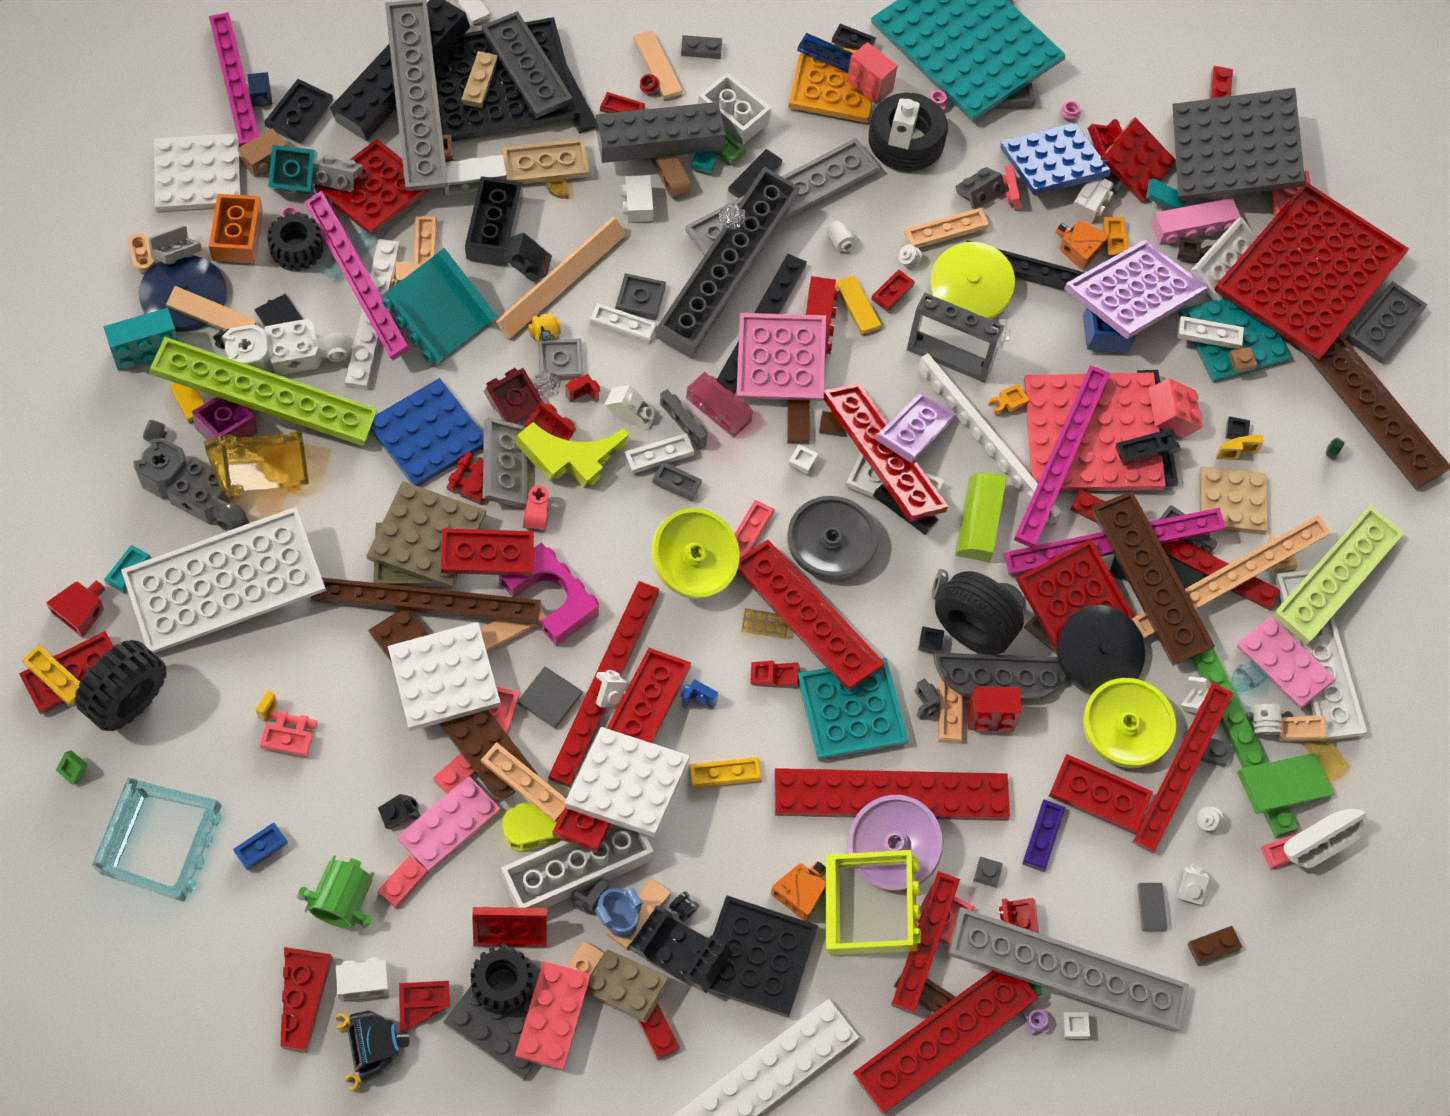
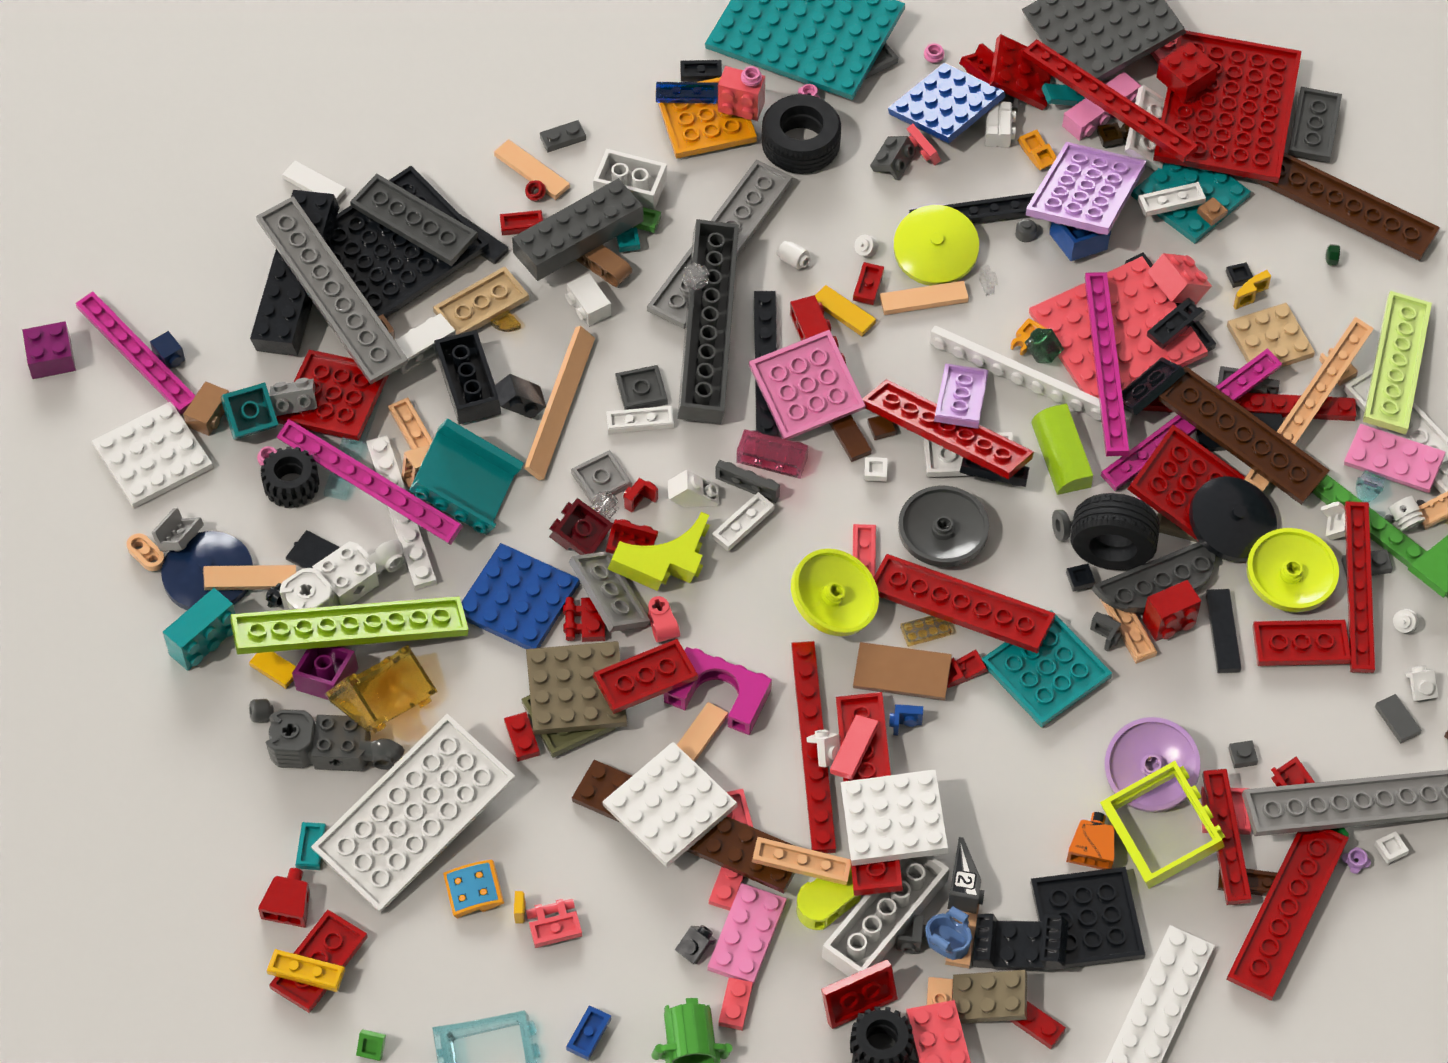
camera: 20 degrees left, 5 degrees down
(120, 685) = (381, 946): black tyre -> none
(163, 46) = (48, 350): none -> magenta brick
(236, 228) = (226, 489): orange brick -> none
(239, 670) = (473, 888): none -> slope
(298, 110) = (217, 355): black plate -> none
(356, 561) = (521, 736): none -> red plate
(430, 600) = (614, 745): reddish brown plate -> none
(479, 79) = (376, 252): tan plate -> none
(544, 327) = (571, 454): yellow head -> none
(550, 697) = (771, 781): dark grey tile -> none
(633, 701) = (854, 747): none -> coral tile
(659, 875) = (966, 881): none -> dark grey slope
(677, 481) = (774, 538): dark grey plate -> none
(684, 906) = (999, 905): black wheel -> none
(721, 651) = (902, 671): none -> medium nougat tile
(725, 773) = (967, 775): yellow tile -> none
(746, 179) = (681, 232): black tile -> none
(849, 791) = (1087, 739): red plate -> none
(884, 56) = (751, 76): none -> bright pink plate
(904, 318) = (923, 297): none -> light nougat tile
(905, 116) = (798, 118): white torso -> none
(946, 228) = (884, 207): light nougat plate -> none
(948, 354) = (954, 319): dark grey window -> none
(1017, 414) = (1044, 345): none -> clear green brick
(1035, 749) = (1223, 631): none -> black tile
(1043, 835) = (1272, 701): dark purple tile -> none
(1063, 304) = (1026, 230): none -> dark grey piece
(1081, 242) = (1011, 168): orange torso -> none
(1090, 493) = (1151, 385): none -> black tile
(1202, 219) = (1110, 100): none -> red plate
(1288, 222) = (1187, 71): none -> red brick

